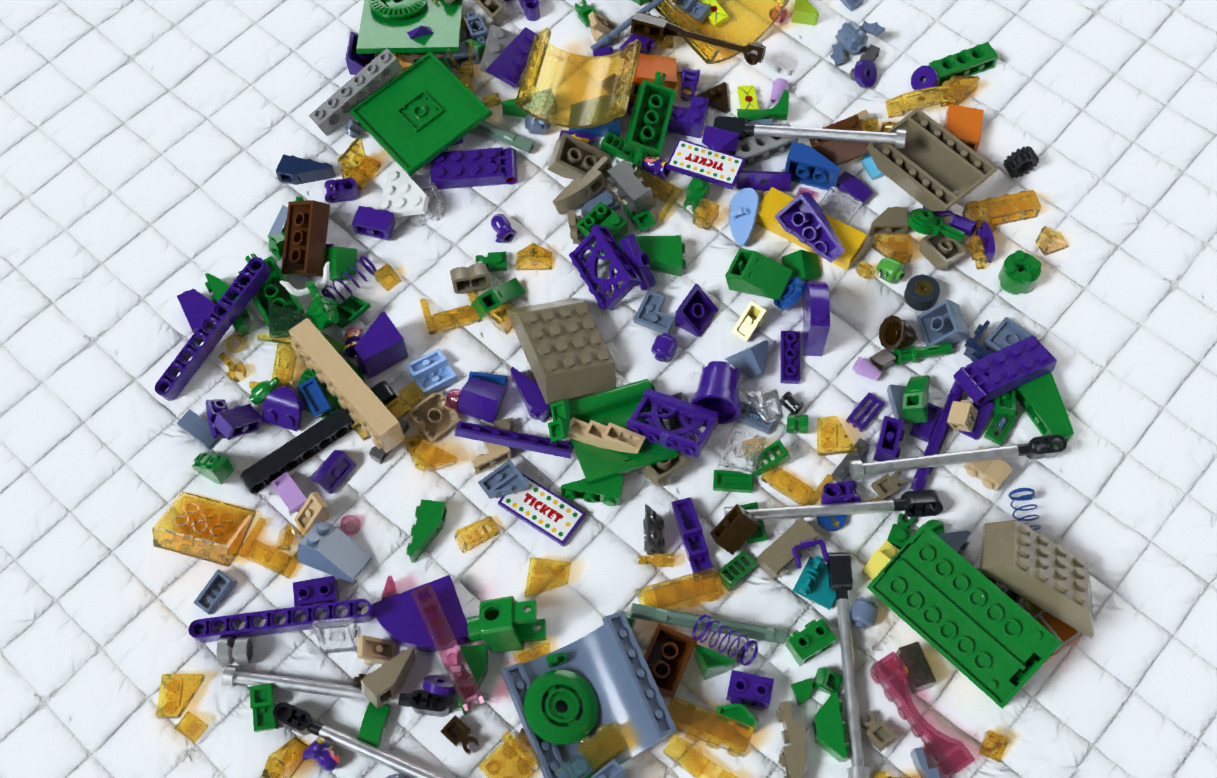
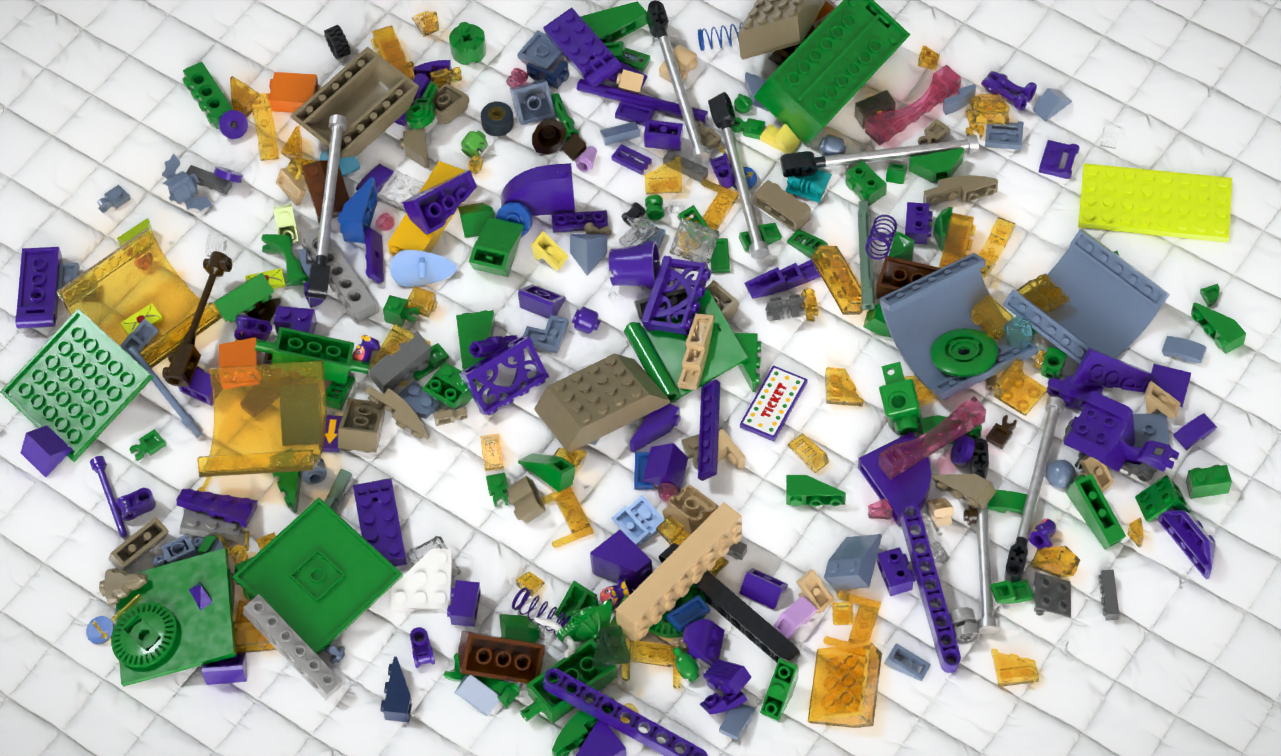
camera: 95 degrees left, 5 degrees down
(191, 727) = (1040, 653): clear yellow slope -> none
(232, 367) = (668, 708): clear yellow bar -> none
(248, 750) = (1052, 595): none -> dark grey hinge
(343, 524) = (815, 565): clear pink piece -> none
(357, 165) = (388, 636): clear yellow bracket -> none
(432, 458) = (740, 496): clear yellow slope -> none
(491, 100) = (285, 516): clear yellow slope -> none
(503, 227) = (455, 482): dark purple animal -> none
(504, 481) = (752, 433): sand blue wing -> none
(556, 659) = (922, 362): green tile -> none
(561, 420) = (686, 390): green slope -> none
(600, 26) = (171, 427): tan slope -> none
(603, 51) = (204, 418): dark purple pin -> none
(705, 164) = (365, 300): tile -> none
(720, 139) = (336, 288): dark purple slope -> none
(722, 75) = (243, 298): none -> green slope
(734, 529) = (775, 240): dark brown brick -> none
(771, 369) = (591, 229): none -> dark tan arm
(777, 90) = (252, 252): lavender cone -> none
(802, 690) = (909, 188): green tile -> none
(808, 114) = (286, 221): none -> yellowish green slope
(808, 544) = (780, 185): dark purple piece -> none
(894, 245) = (447, 141): clear yellow slope -> none
(916, 399) = (616, 115): green slope -> none
(973, 314) = (517, 77): none -> clear pink wheel

